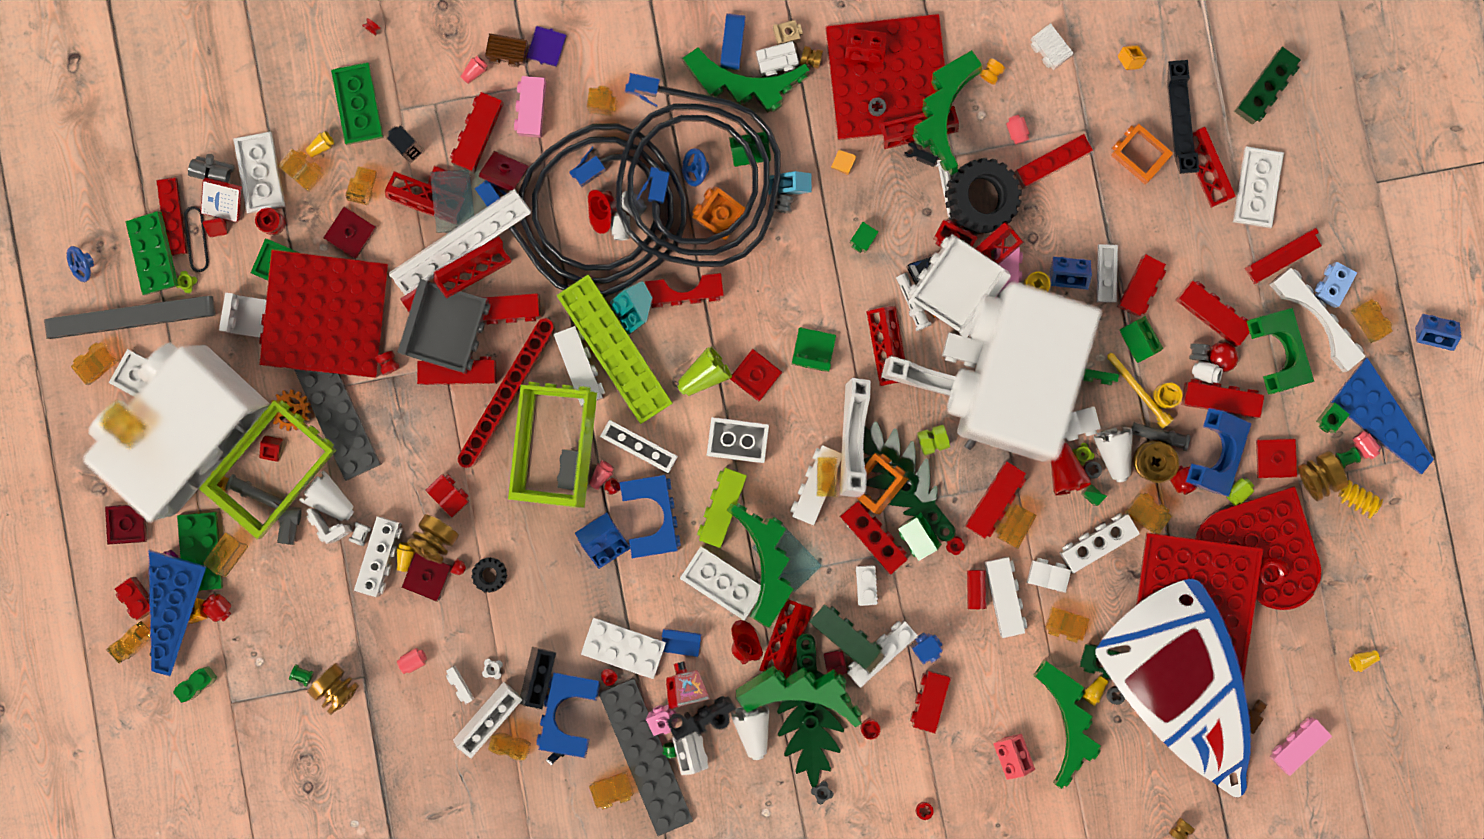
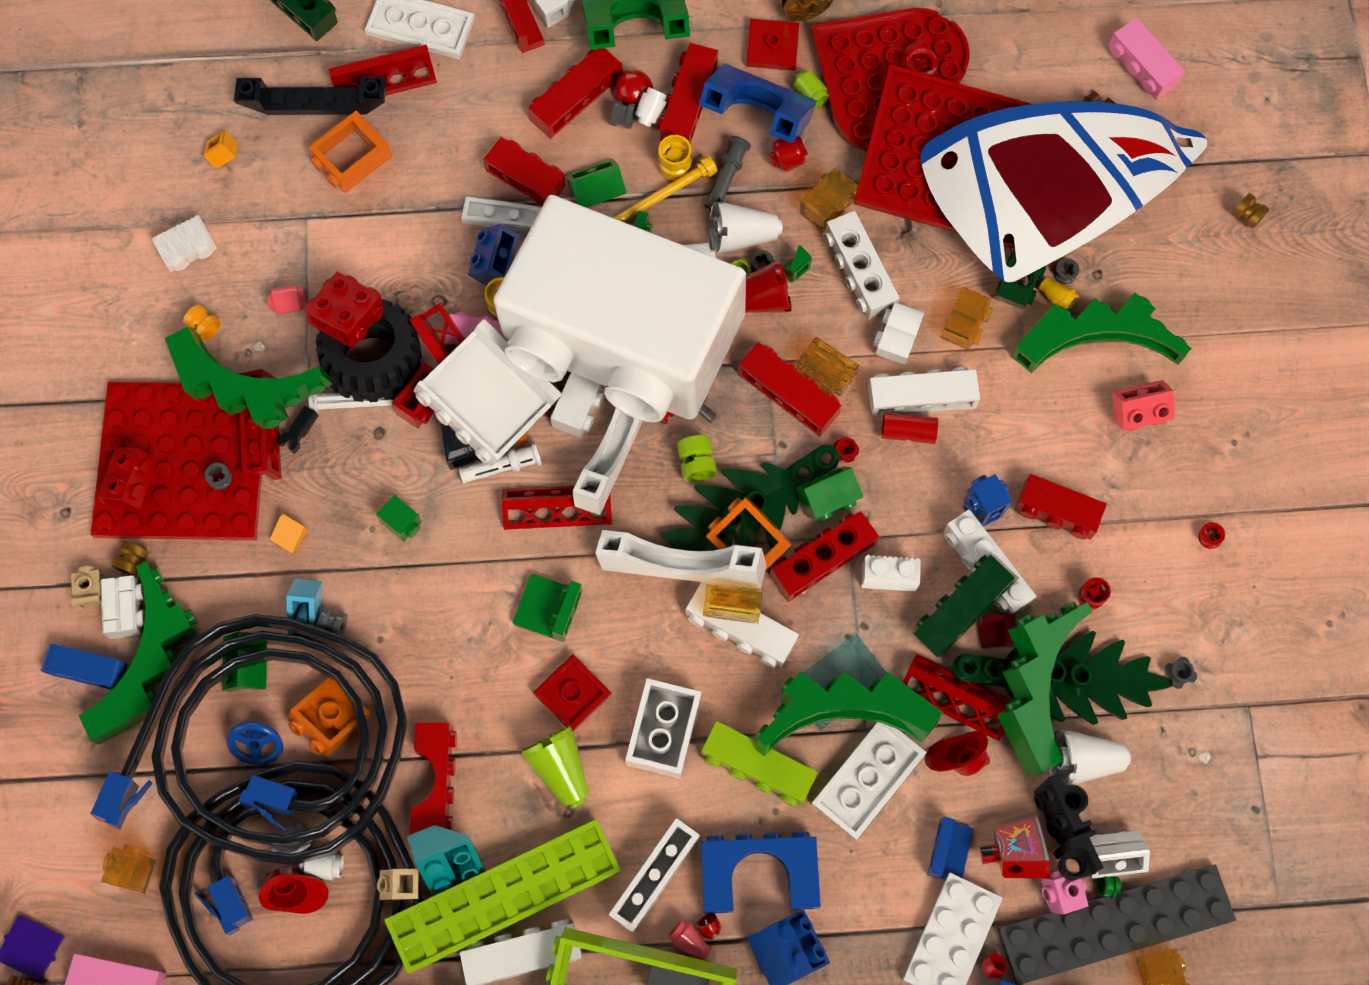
camera: 90 degrees left, 15 degrees down
(609, 275) = (391, 884): none -> tan brick
(1006, 175) = (344, 309): none -> red brick
(1053, 161) = (333, 242): red brick -> none
(1166, 464) = (765, 168): pearl gold wheel -> none

